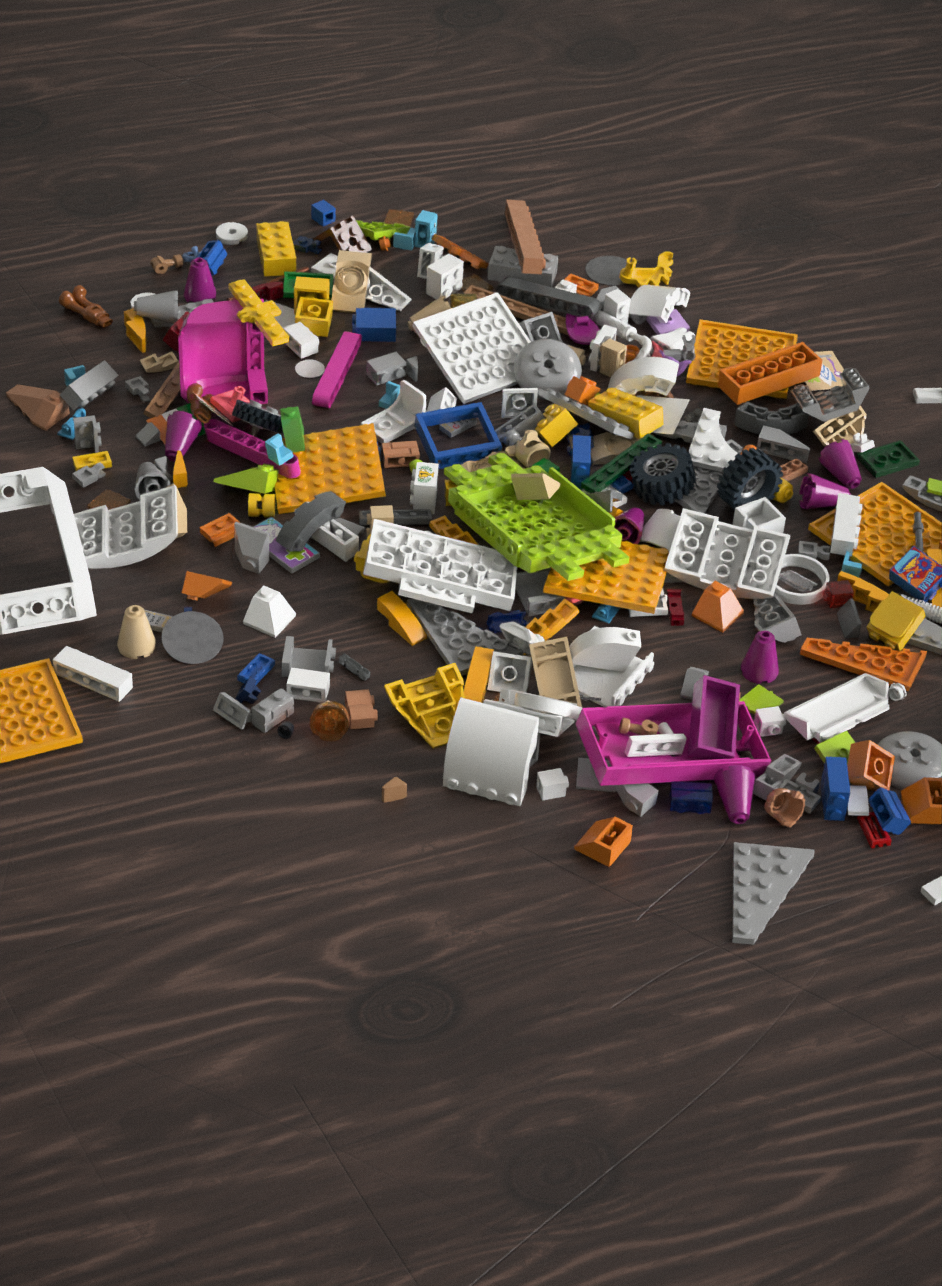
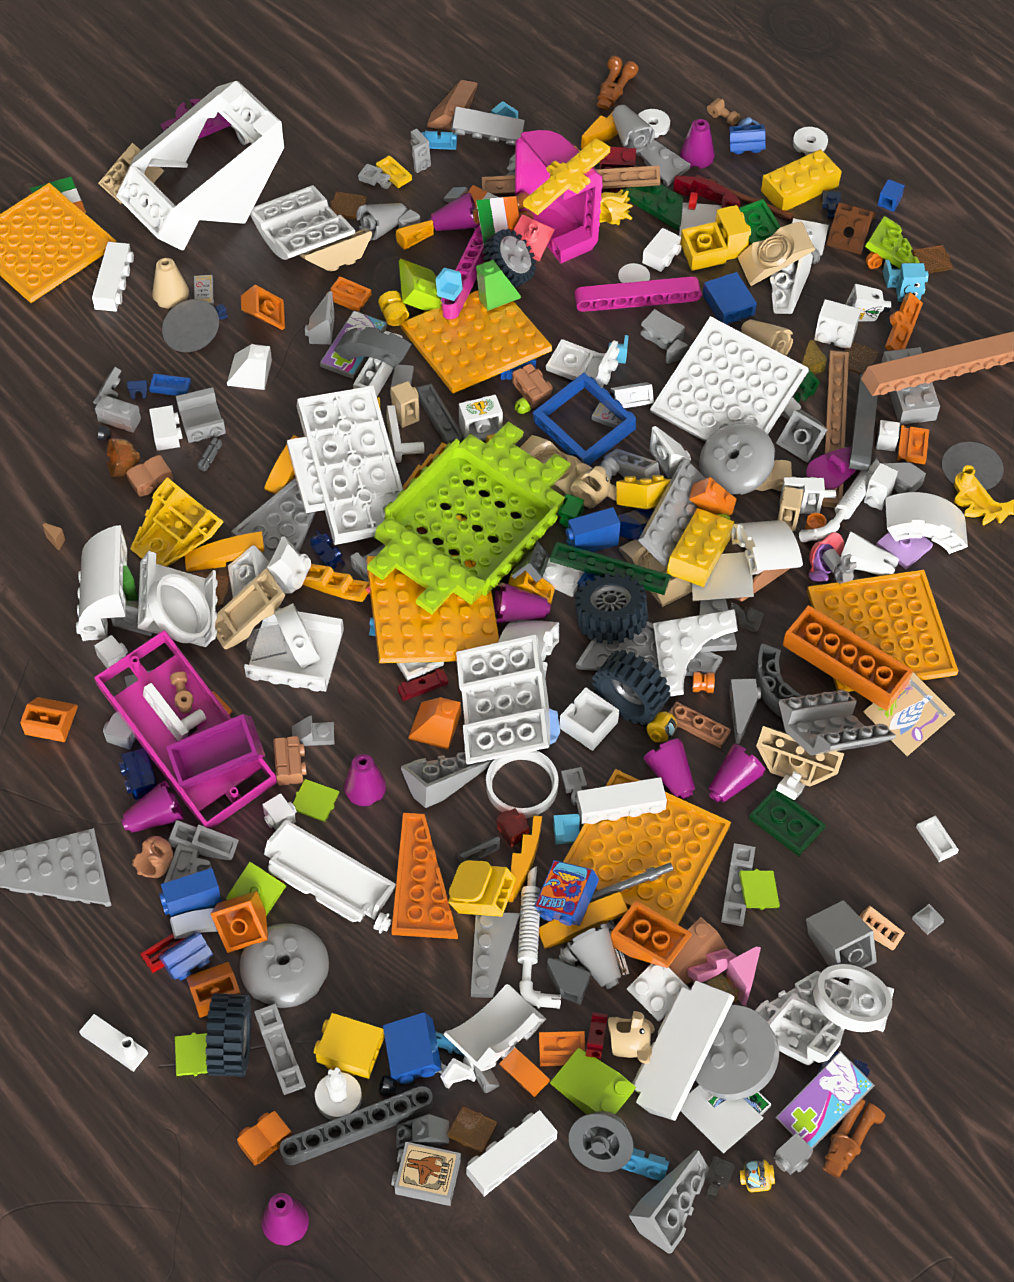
camera: 70 degrees right, 15 degrees up
(534, 486) = (515, 502): tan slope -> none
(797, 581) = (516, 782): clear piece -> none

